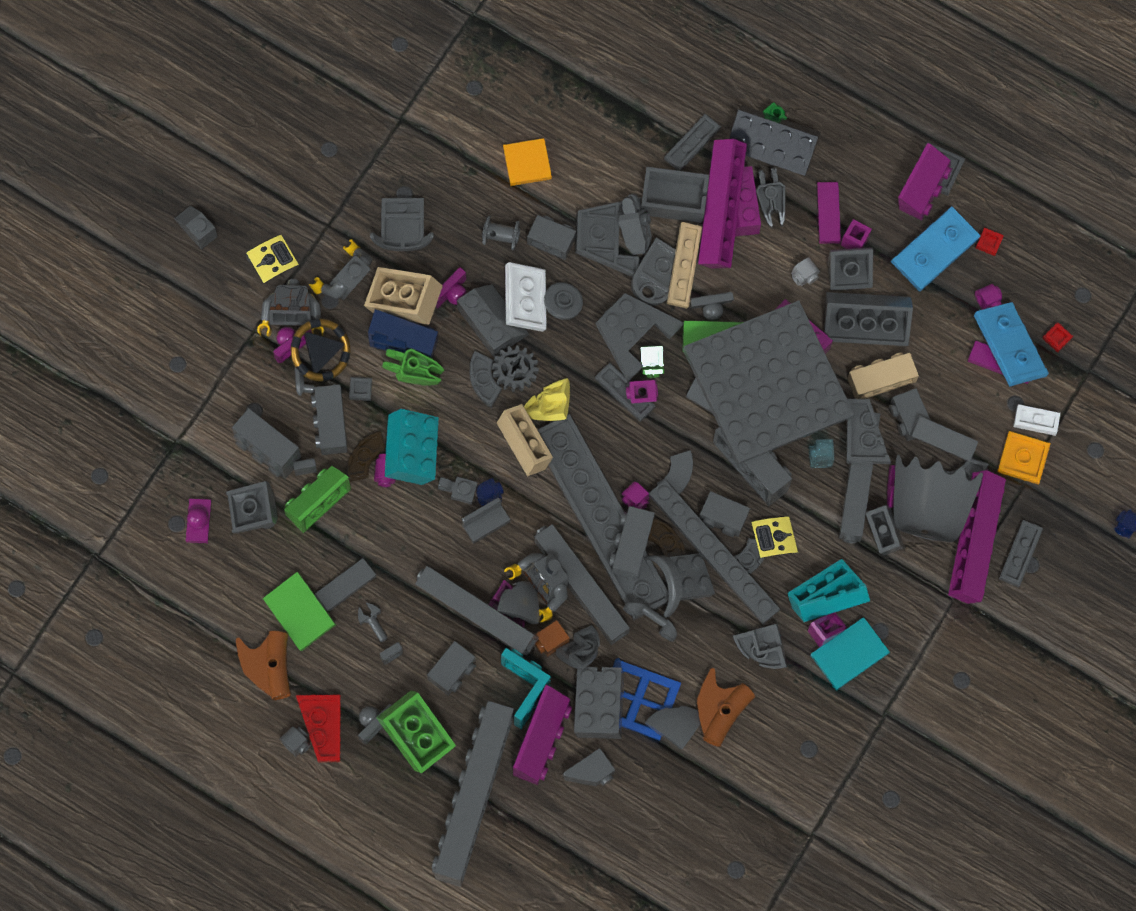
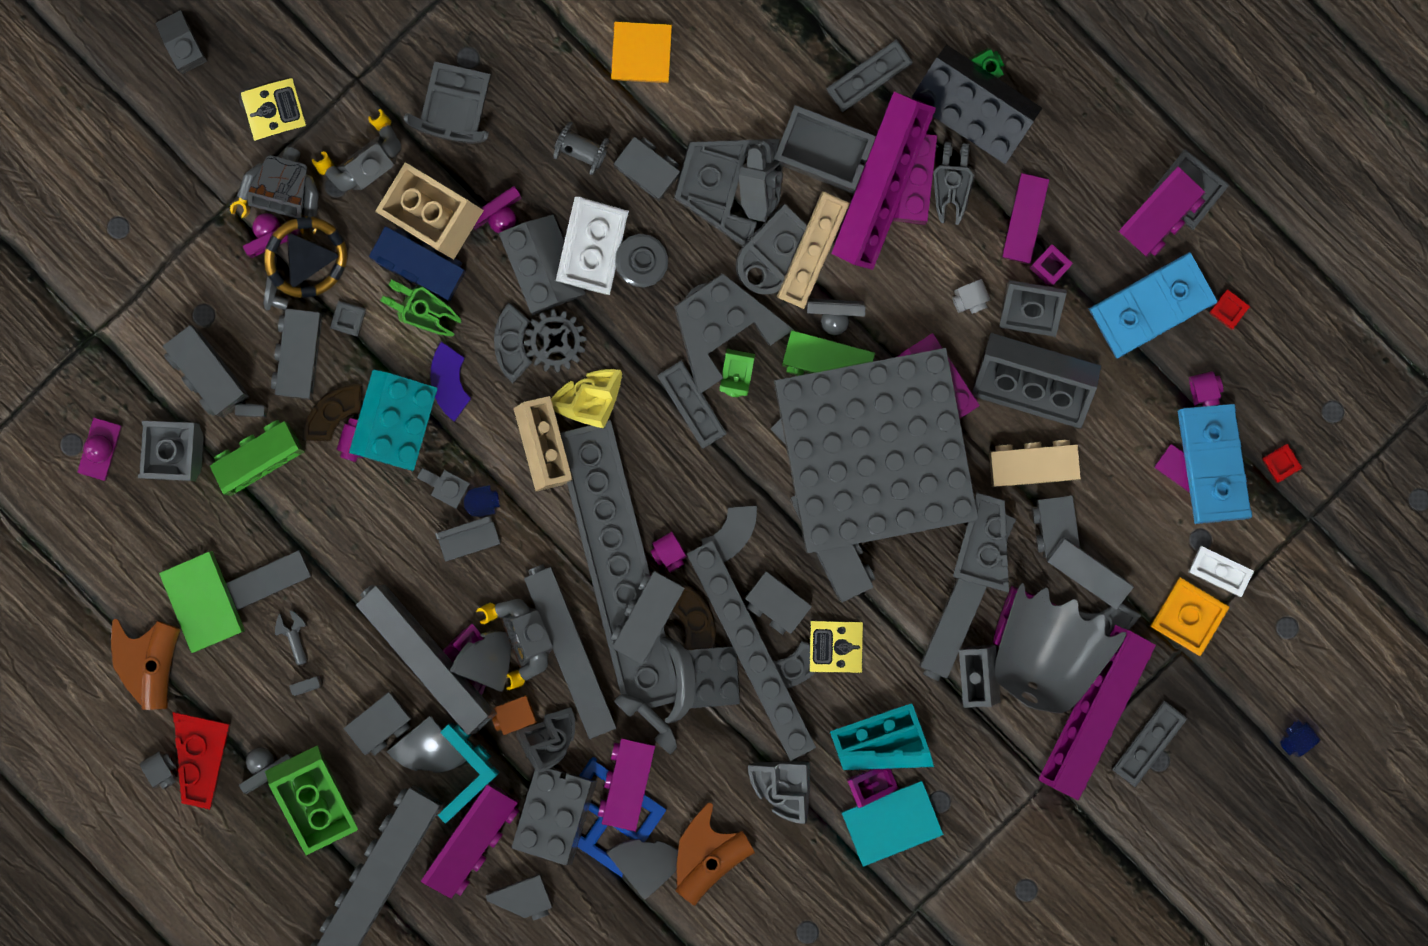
camera: 15 degrees right, 15 degrees up
(440, 407) = (446, 377): none -> dark purple tile
(492, 679) = (426, 749): none -> dark grey brick
(647, 668) = (626, 784): none -> magenta brick
(651, 391) = (705, 422): magenta brick -> none
(822, 454) = (925, 552): clear light blue brick -> none

